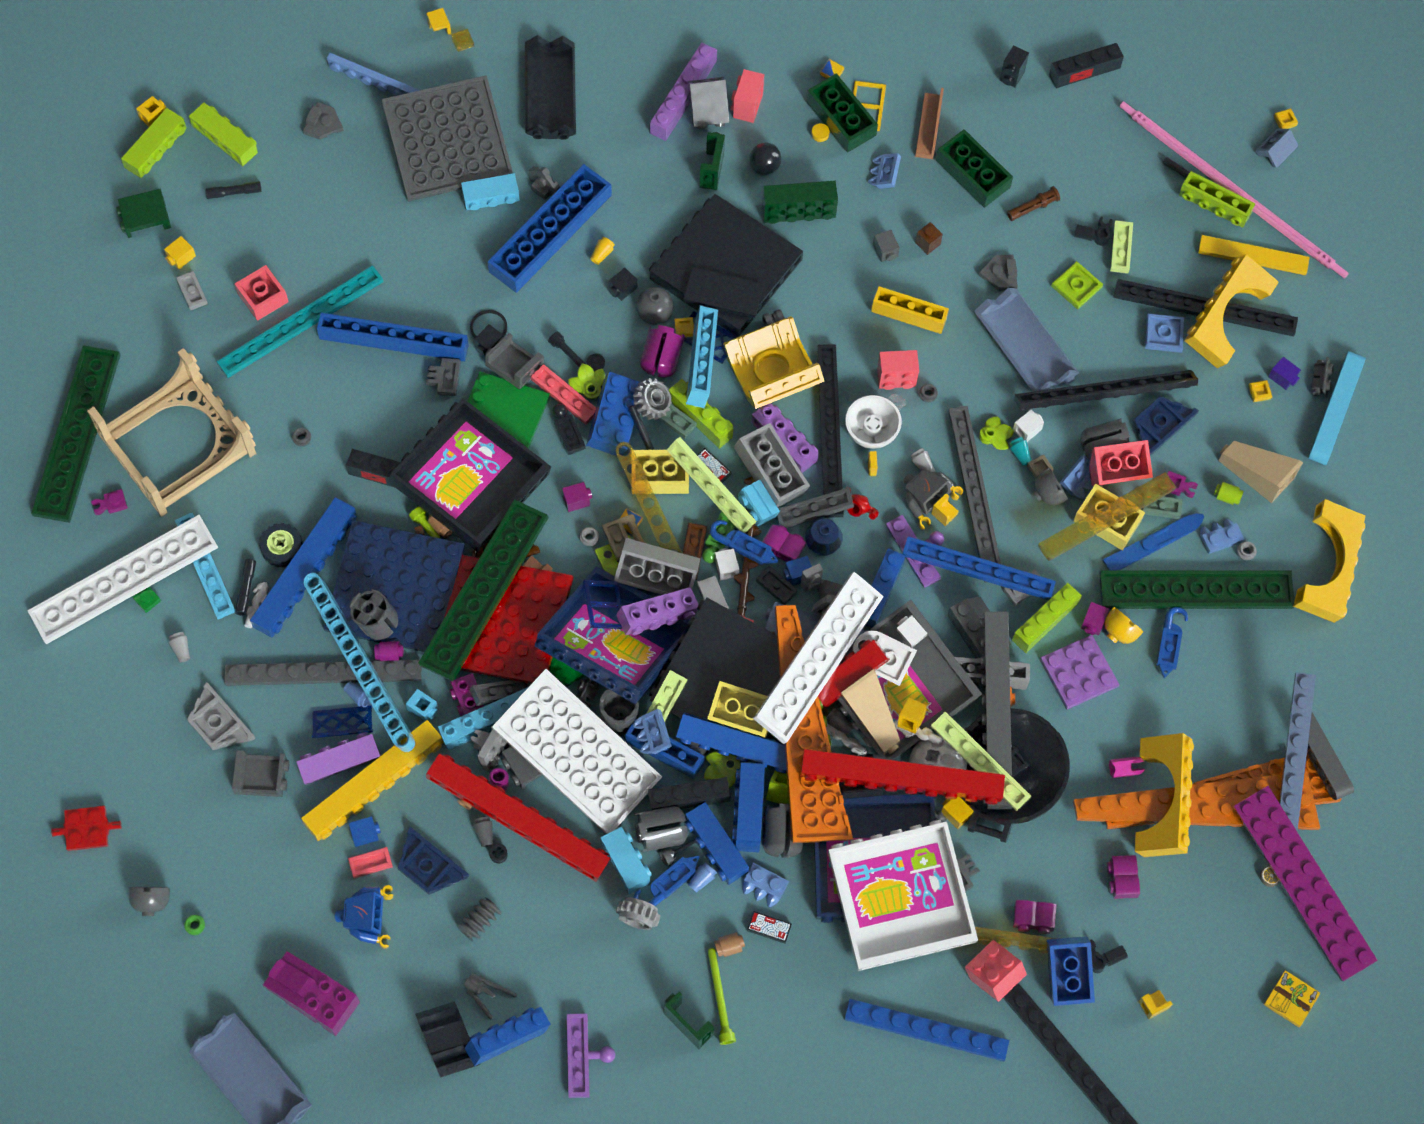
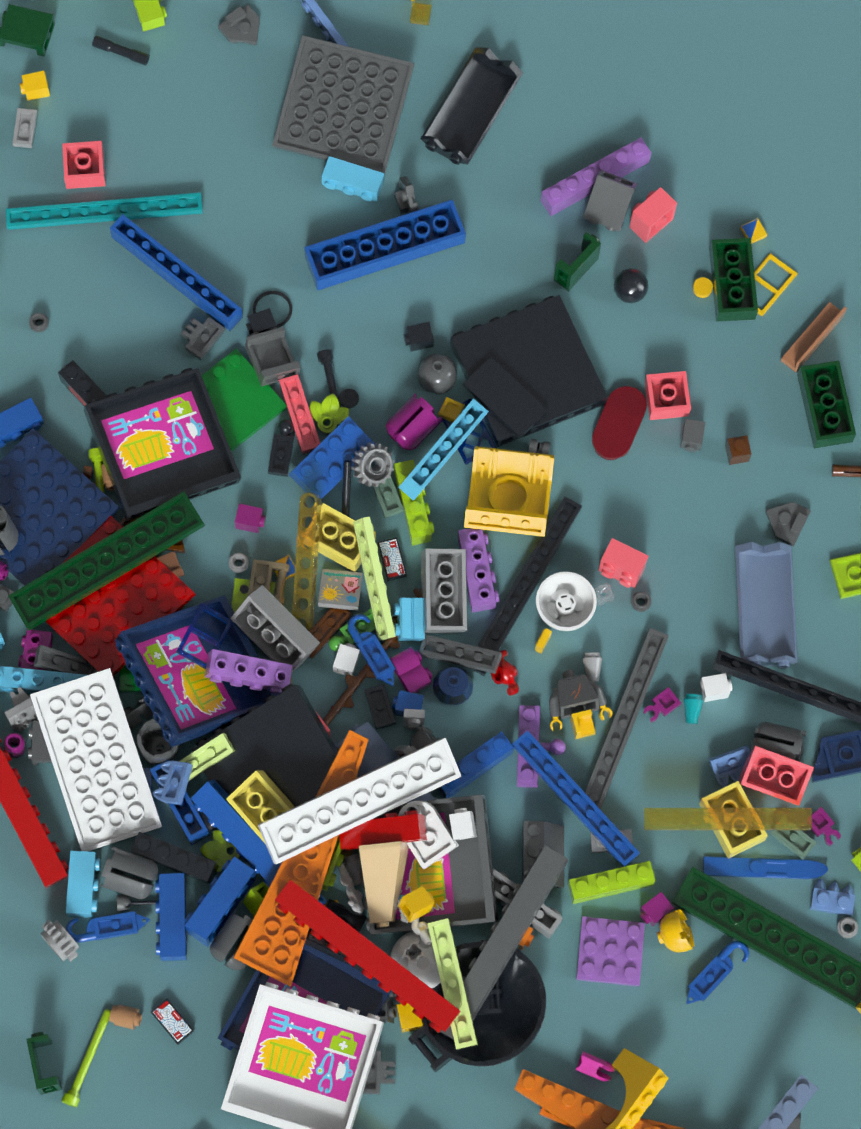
camera: 30 degrees right, 5 degrees up
(602, 250) = (421, 292): yellow cone -> none
(686, 512) = (340, 589): none -> light grey tile
(702, 877) = (141, 940): medium blue cone -> none
(711, 589) = (316, 682): white tile -> none
(765, 883) = (194, 980): medium blue plate -> none
(799, 201) = (634, 346): dark green brick -> none
(822, 268) = (619, 423): none -> dark red tile
(848, 225) = (667, 395): none -> coral brick
(886, 170) = (740, 360): medium blue plate -> none
(910, 310) = (673, 511): yellow brick -> none
(997, 433) = (683, 678): lime plate -> none
(997, 460) = (663, 703): none -> magenta plate
(1038, 465) = (700, 734): dark tan plate -> none
(1049, 488) = (695, 760): dark grey cylinder -> none

